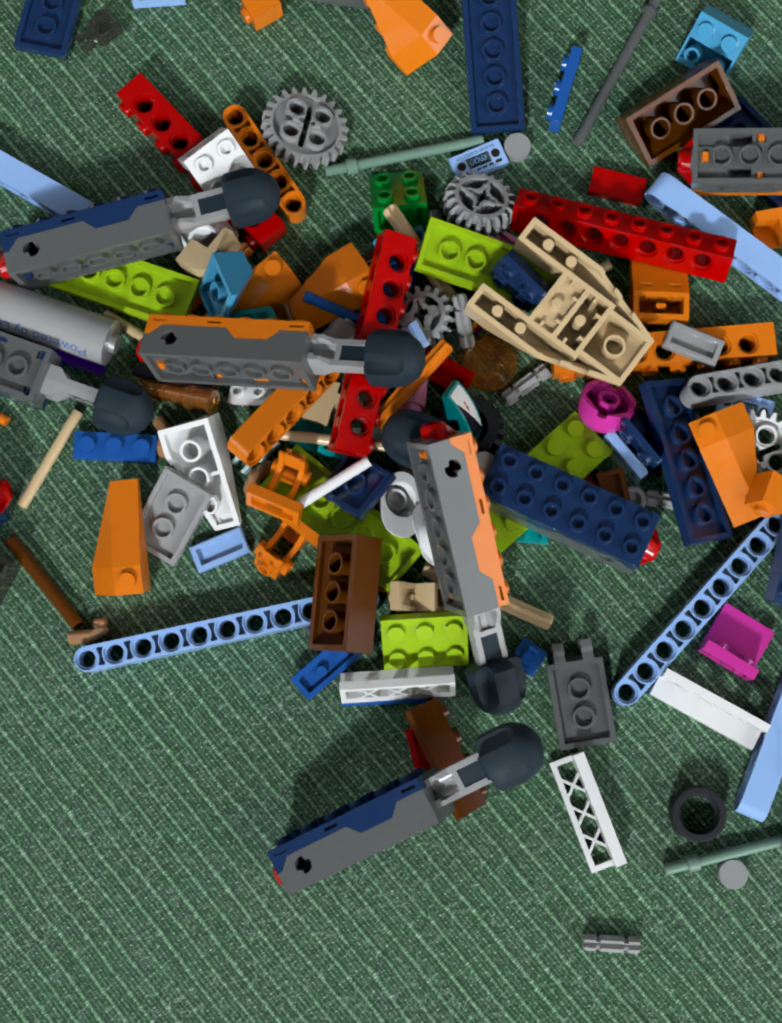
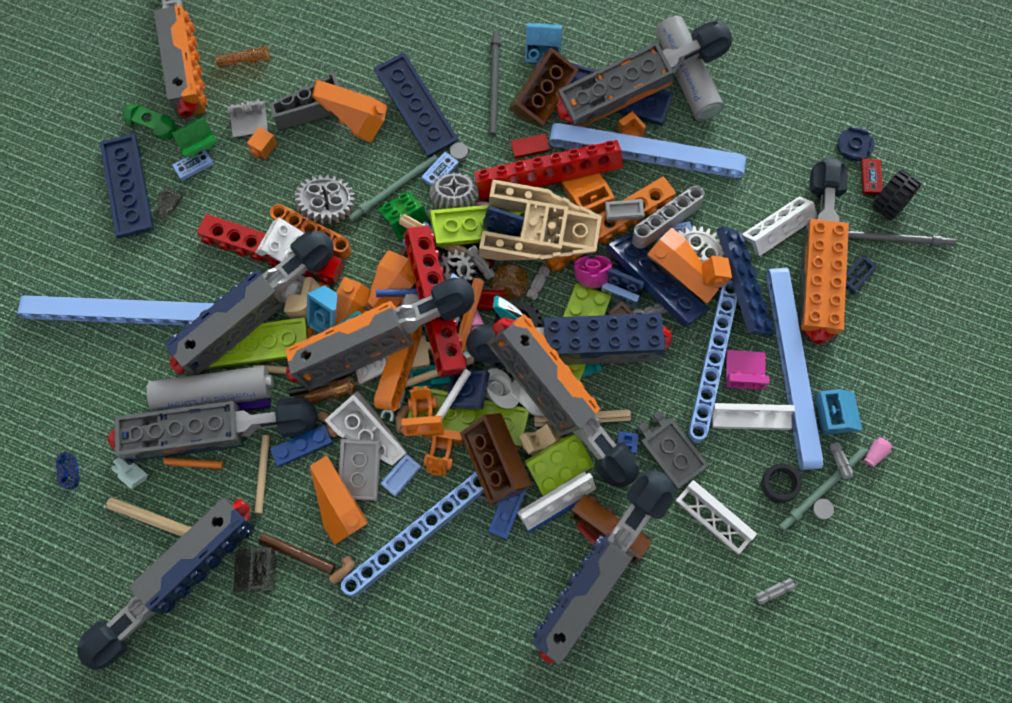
camera: 30 degrees left, 10 degrees down
(563, 88) = (468, 106): blue plate -> none

